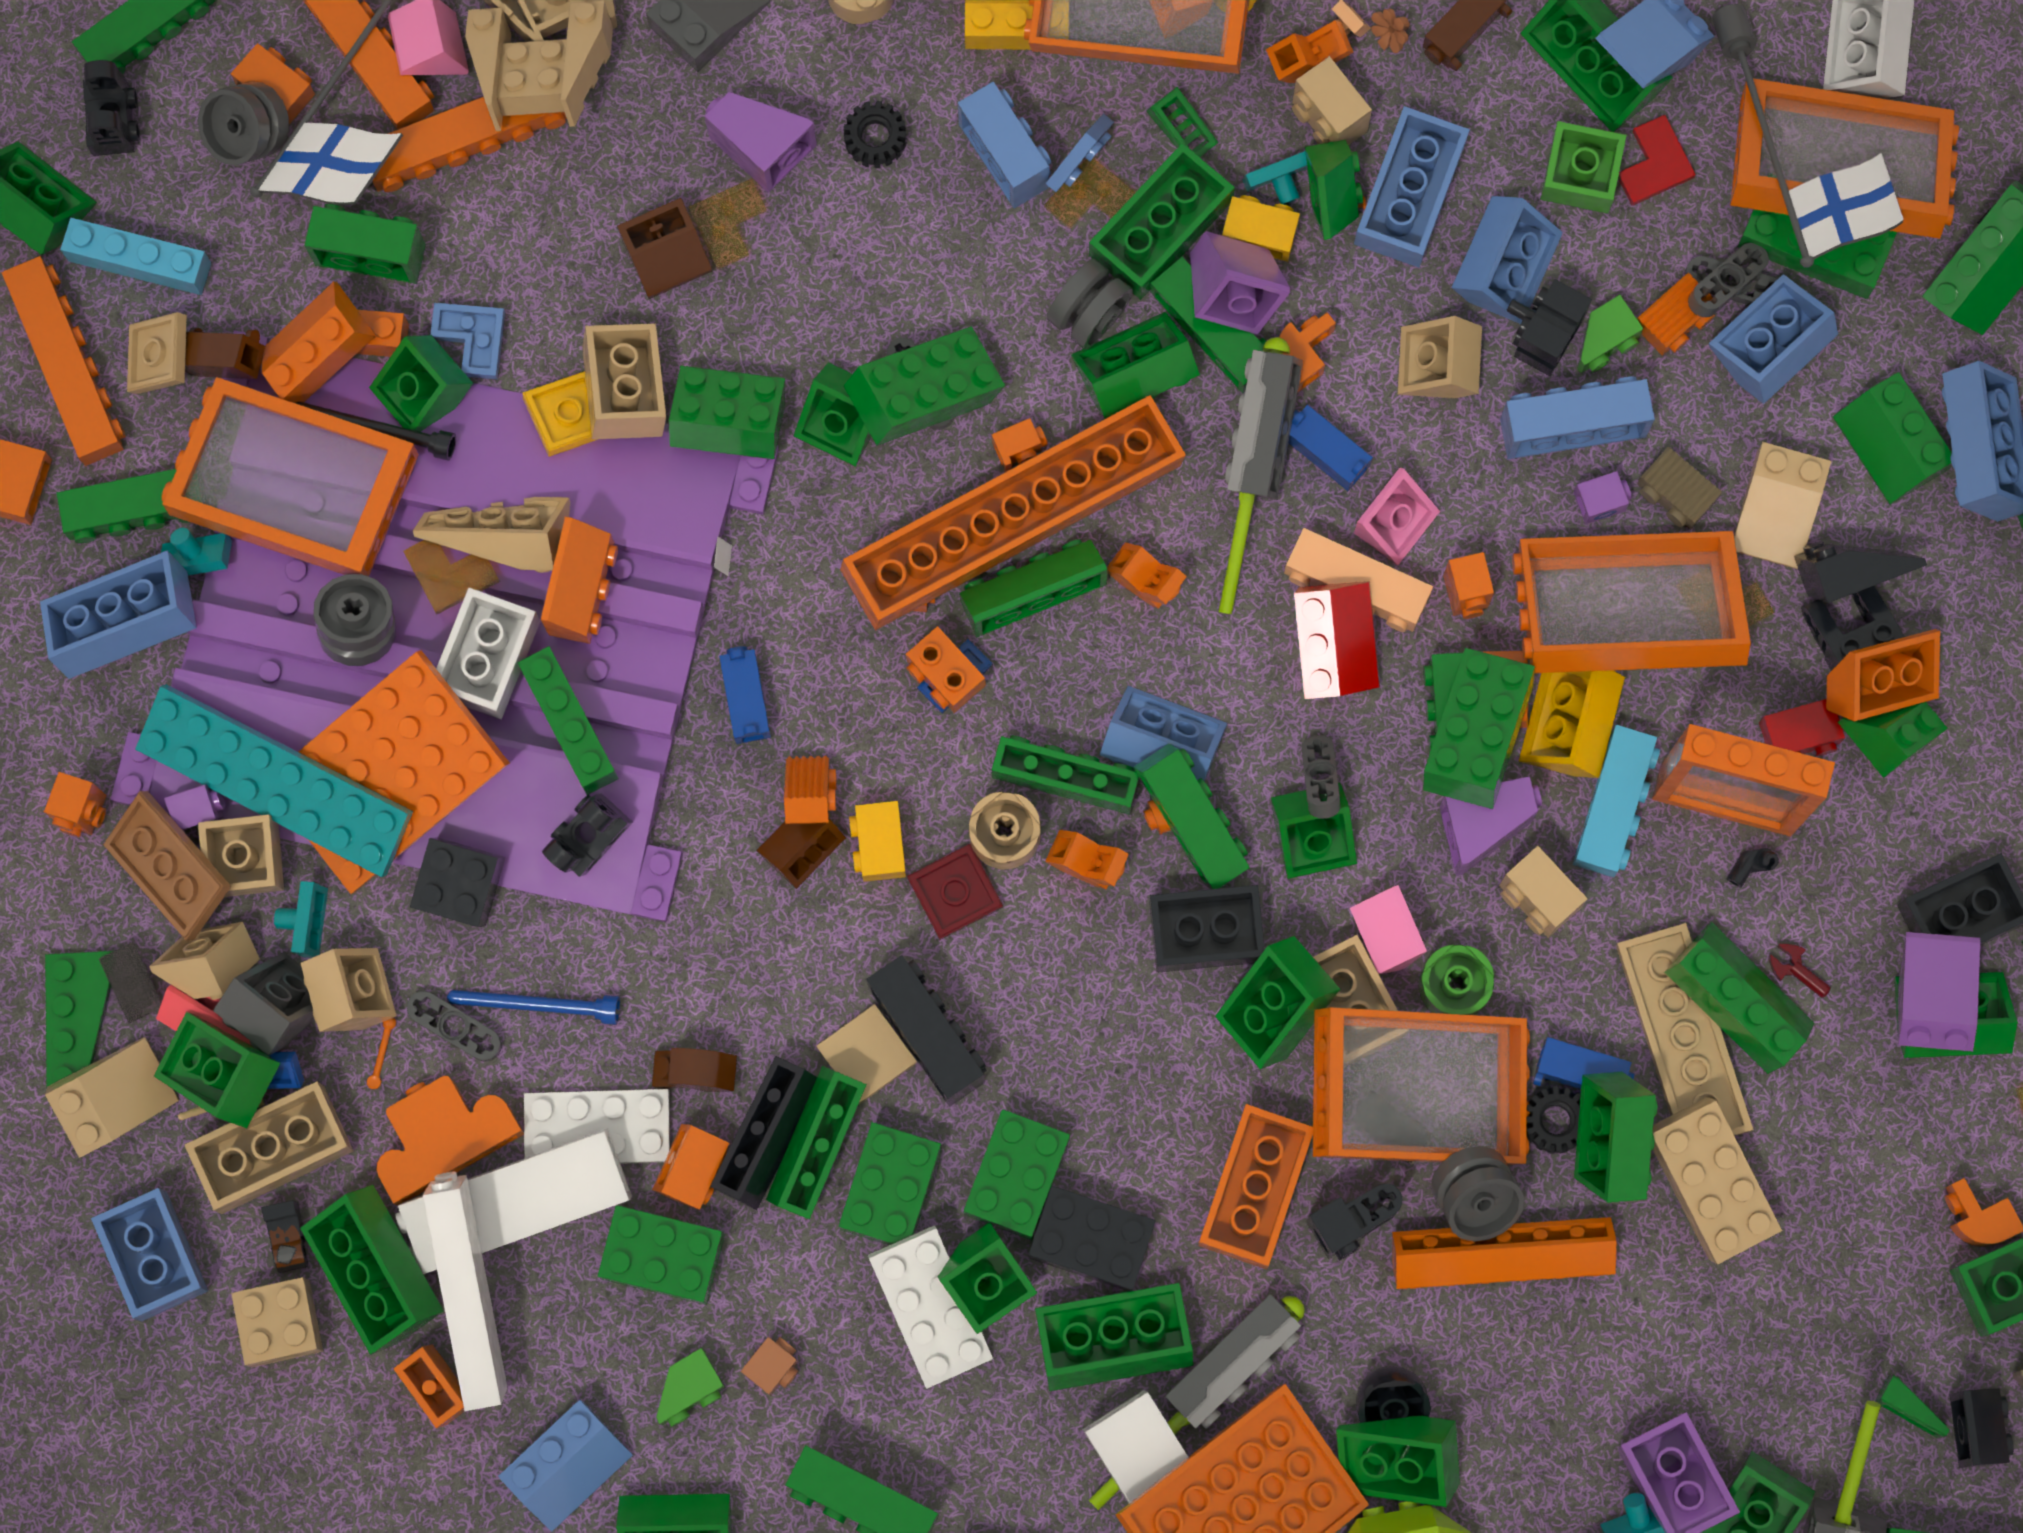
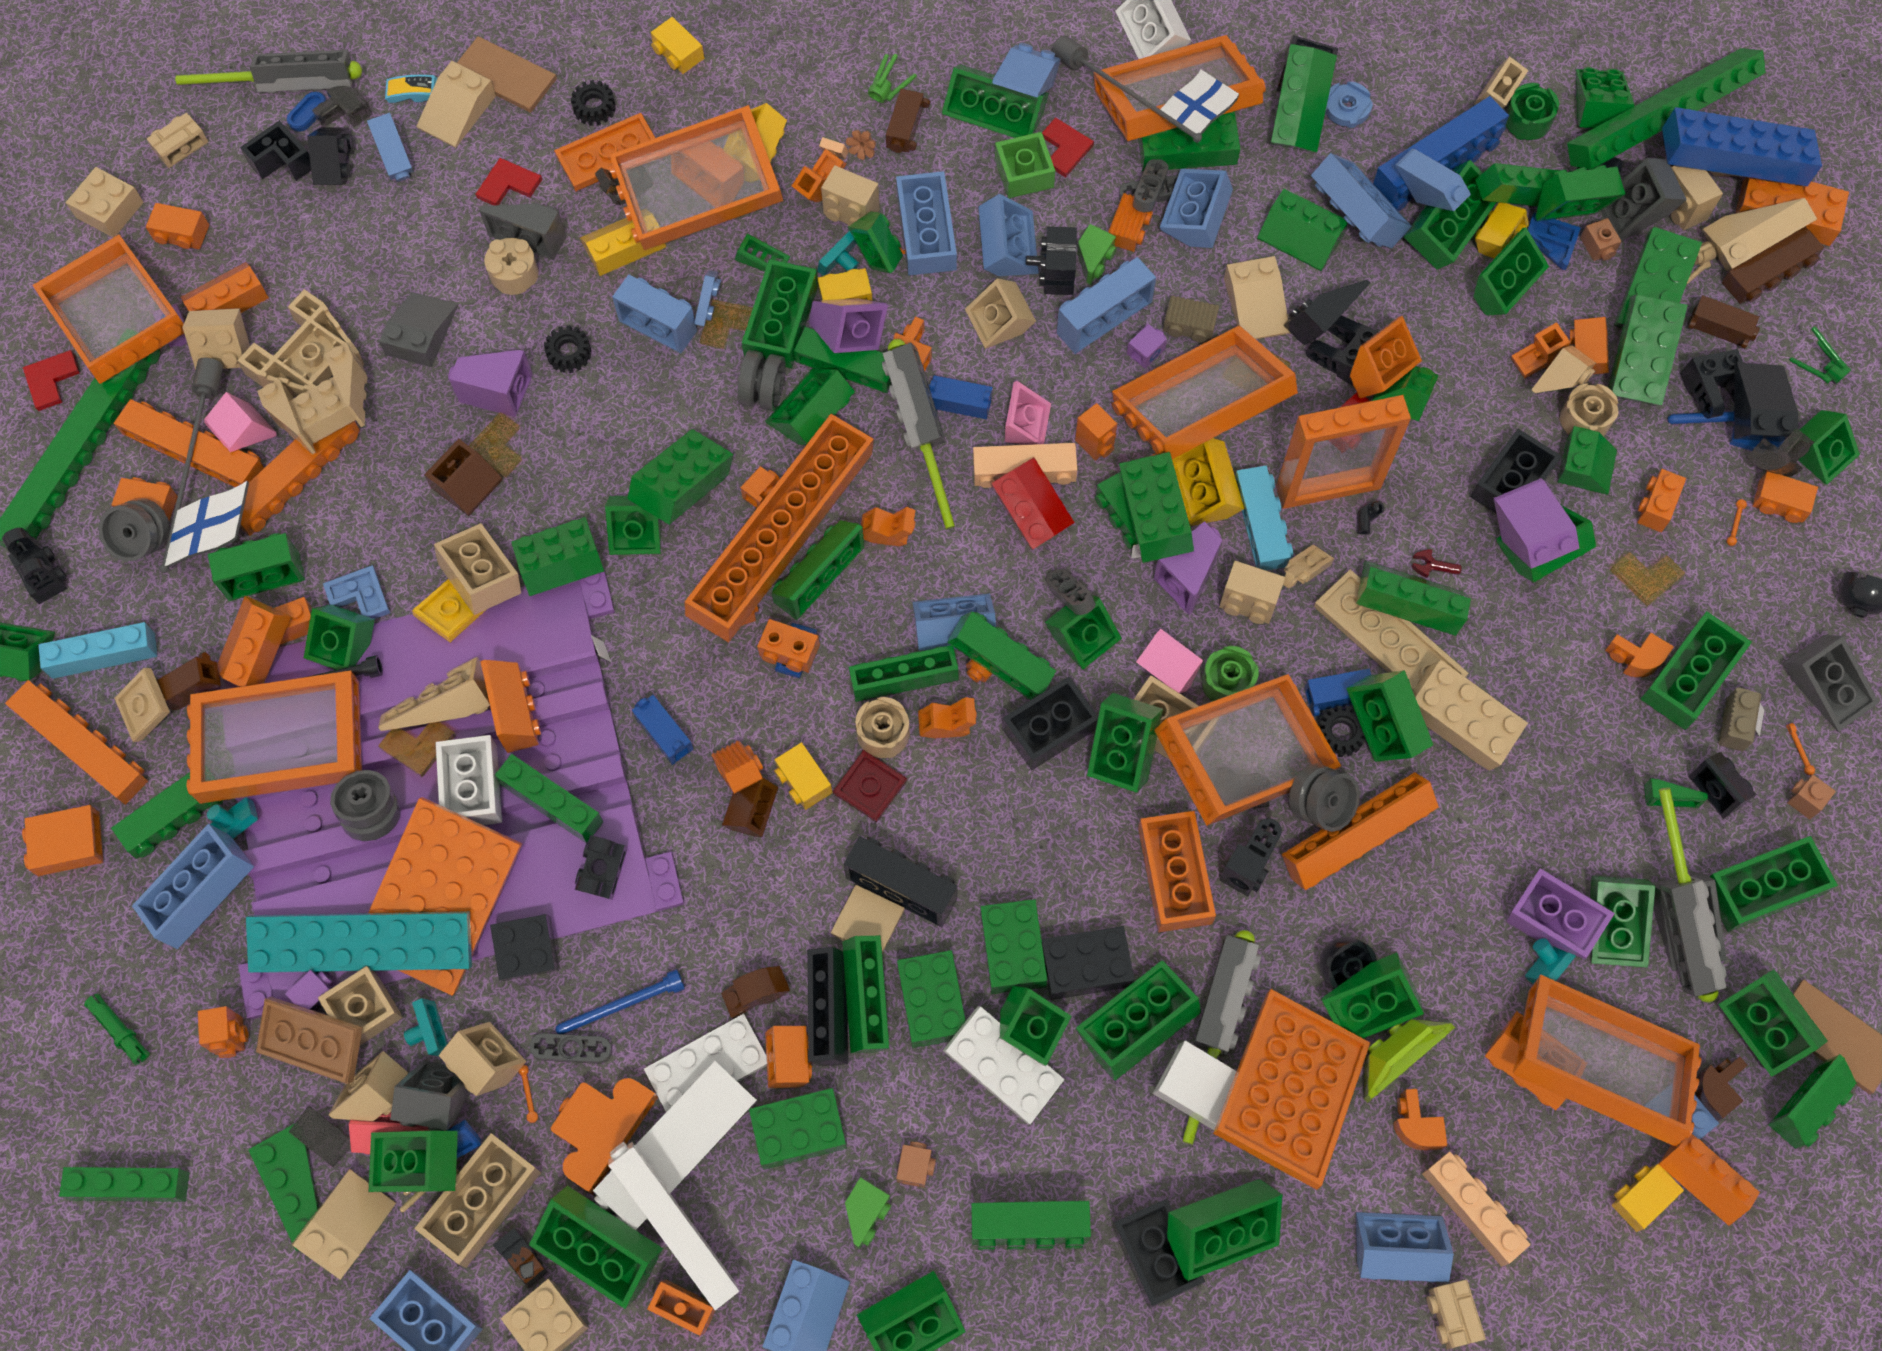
camera: 30 degrees left, 10 degrees down
(1631, 892) = (1306, 566): none -> tan hinge

